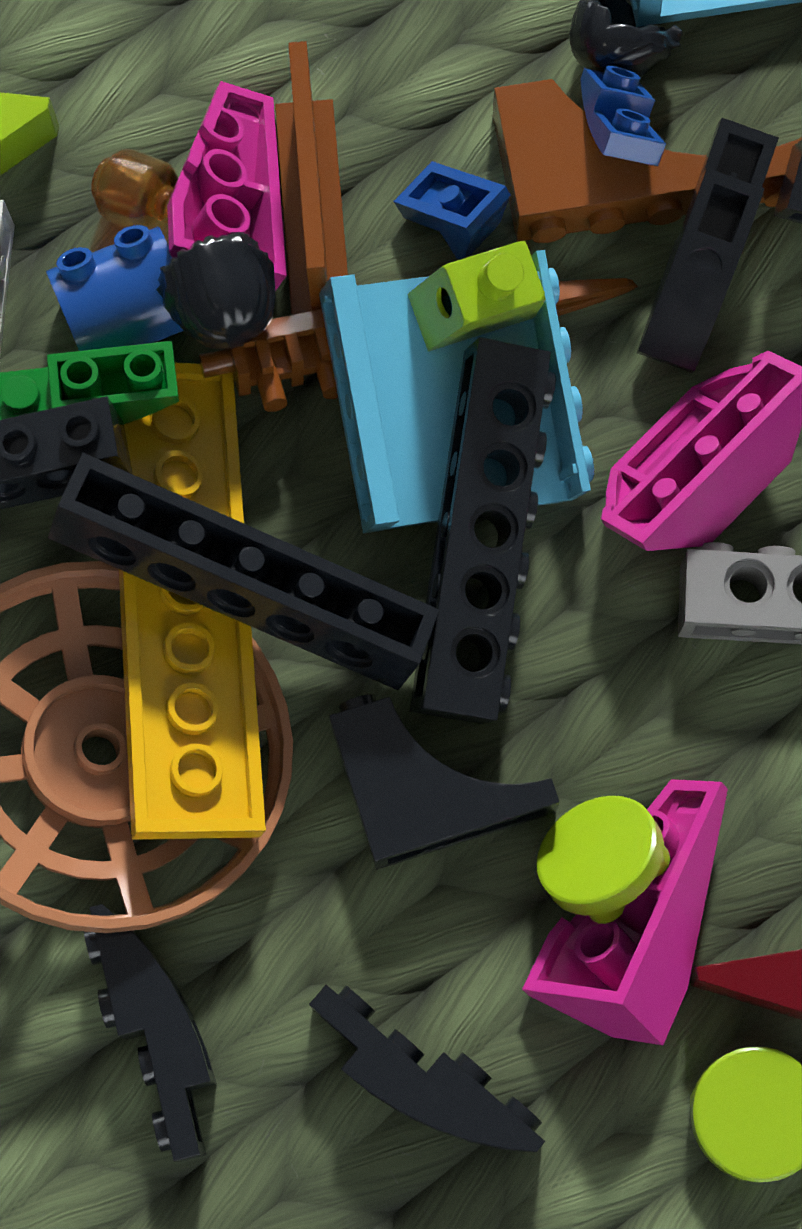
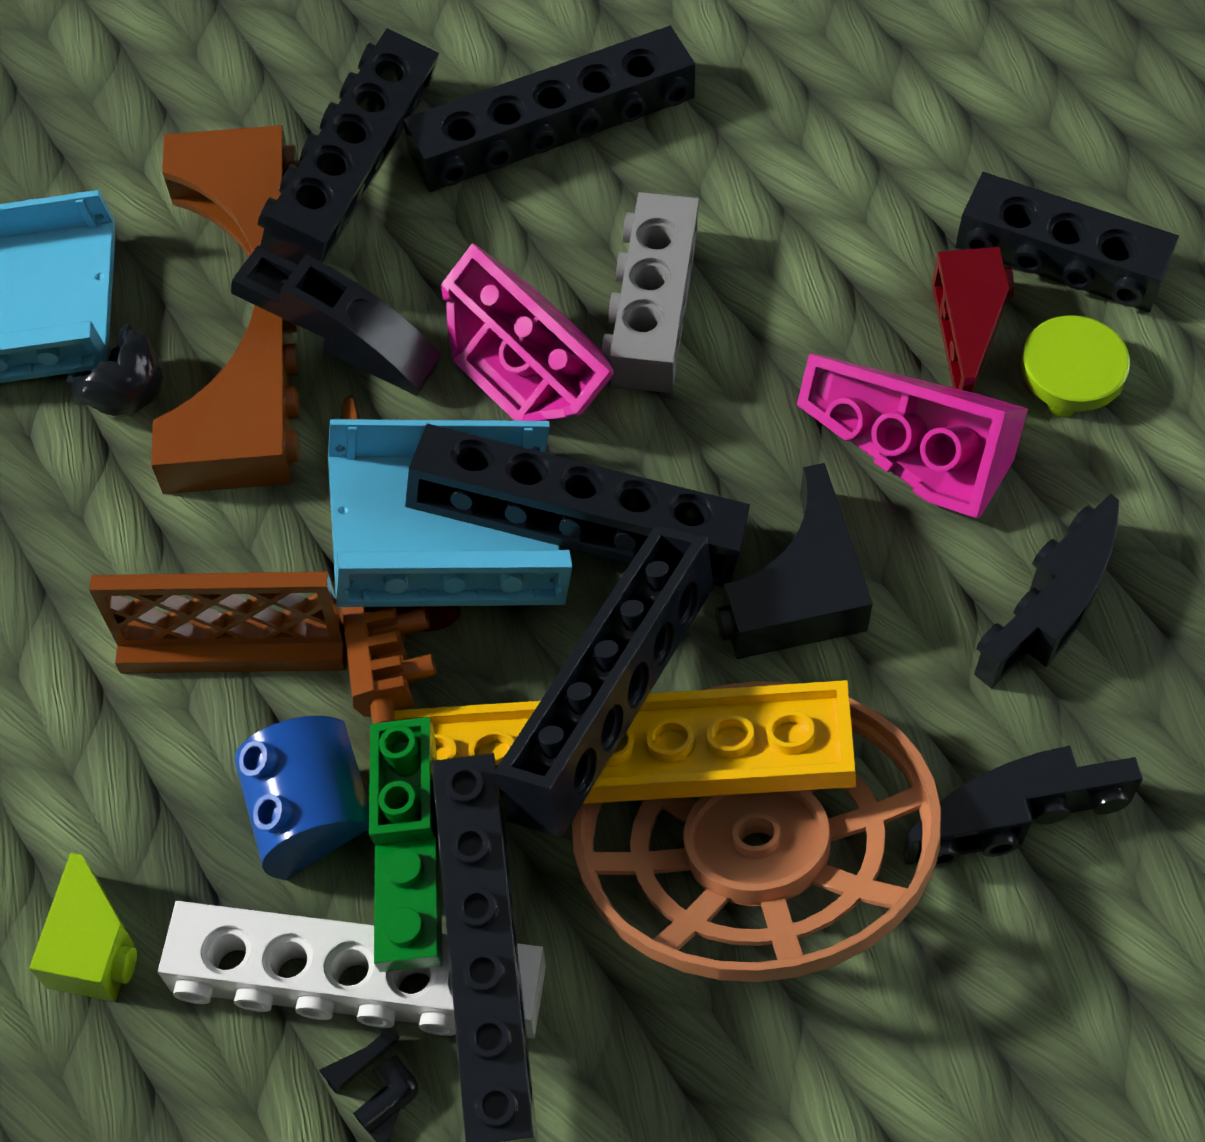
camera: 85 degrees left, 15 degrees down
(133, 189) = (184, 786): clear orange head -> none
(220, 290) = (328, 678): black hair -> none
(231, 177) = (220, 690): dark pink wedge -> none
(455, 205) = (258, 505): blue slope -> none
(485, 295) = (364, 443): lime torso -> none
(601, 857) = (869, 442): lime tile -> none
(619, 115) = (204, 366): blue slope -> none

